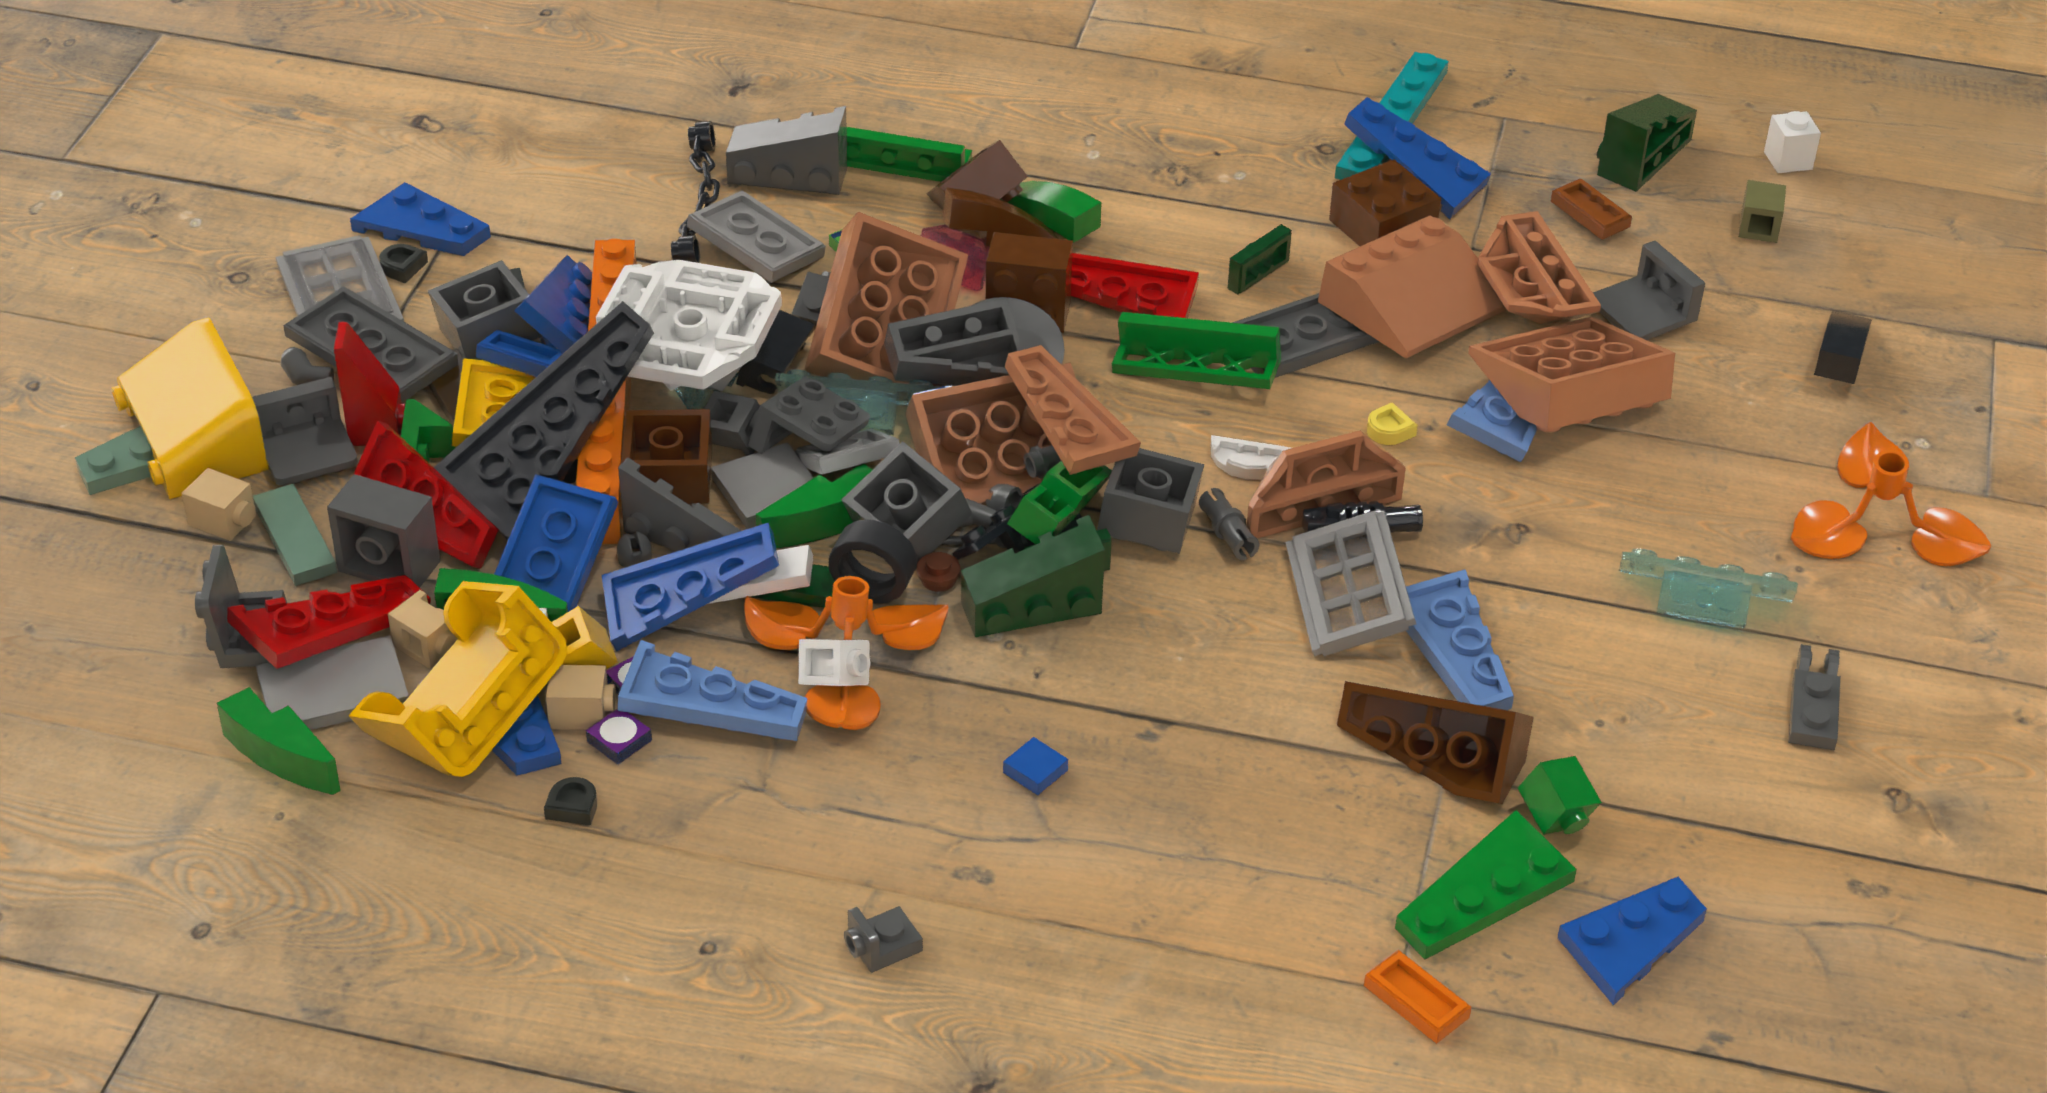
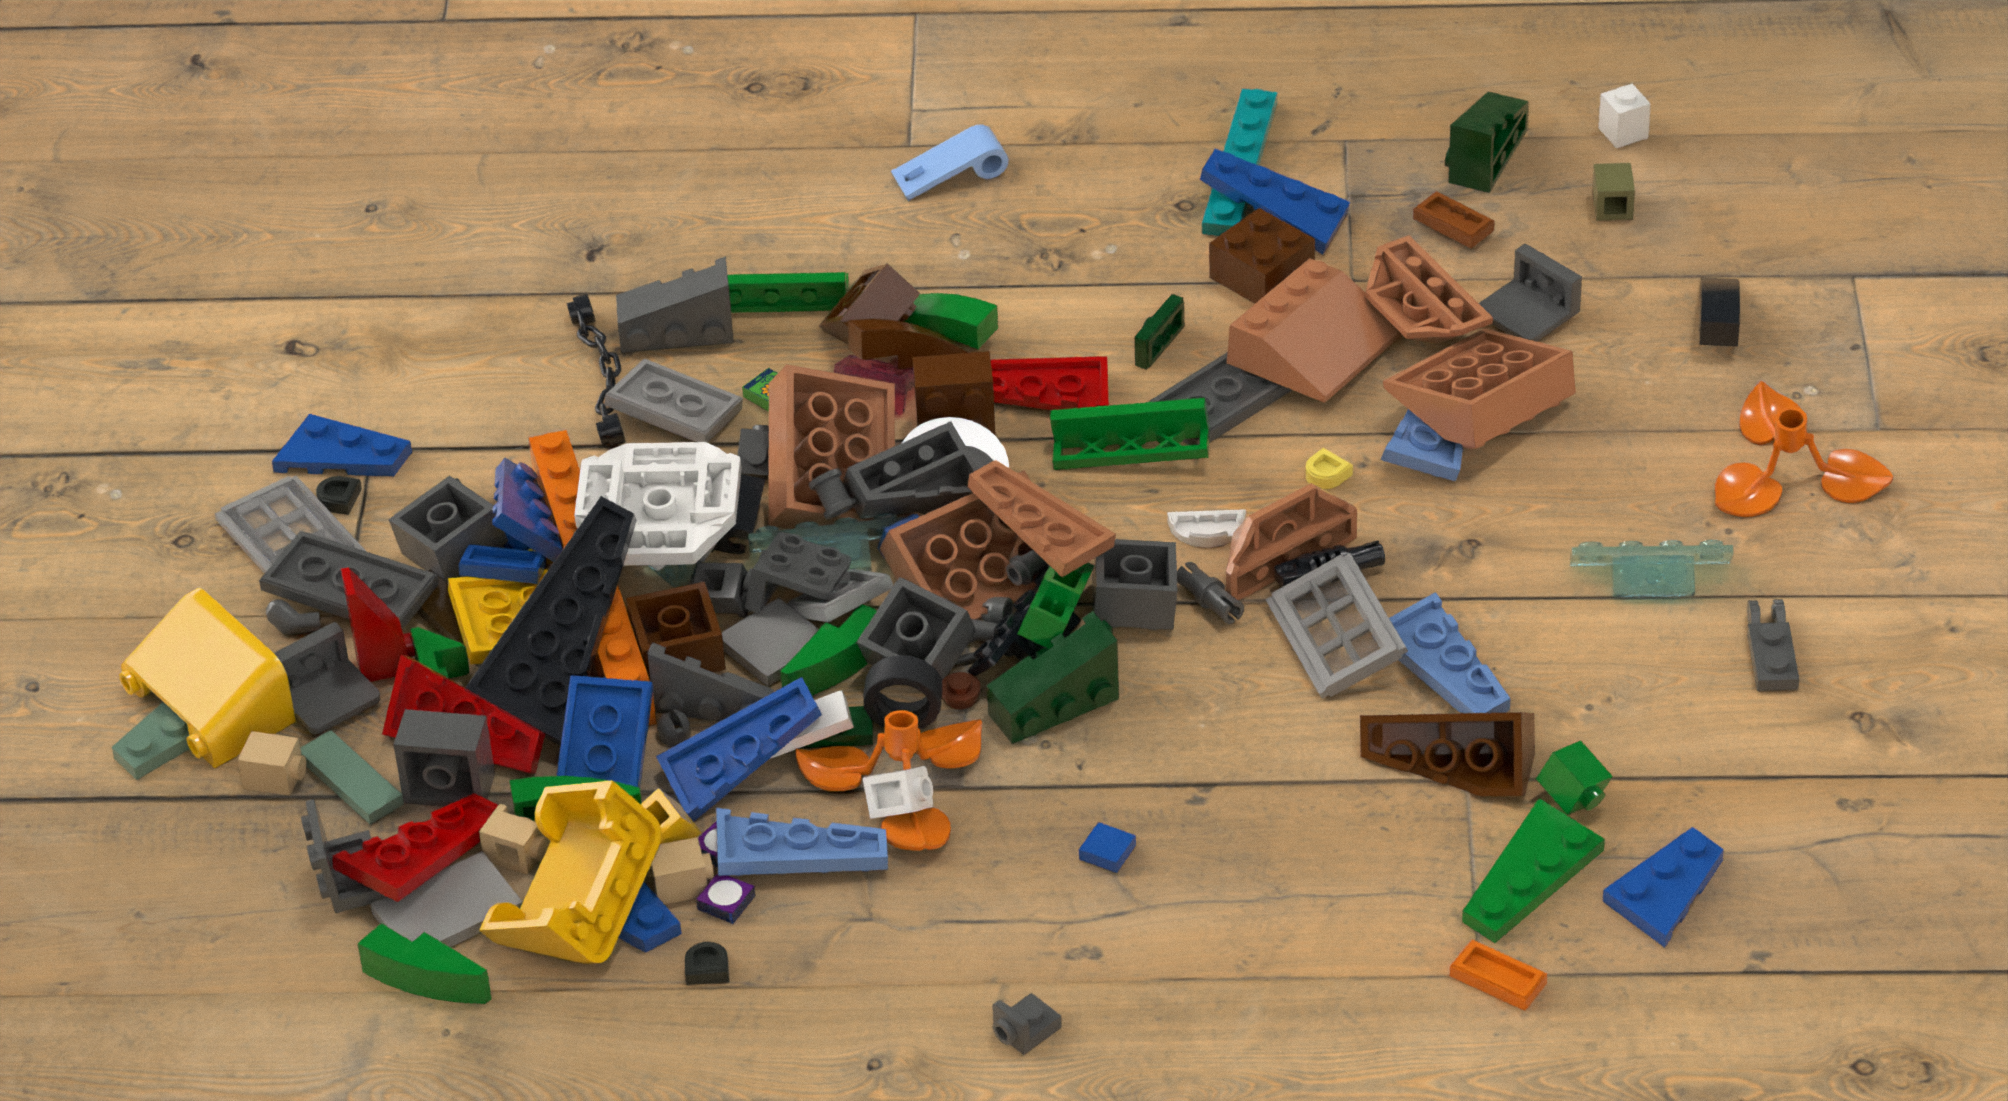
camera: 10 degrees left, 0 degrees up
(870, 348) = (832, 493): none -> dark grey bush
(1134, 56) = (972, 147): none -> light blue door

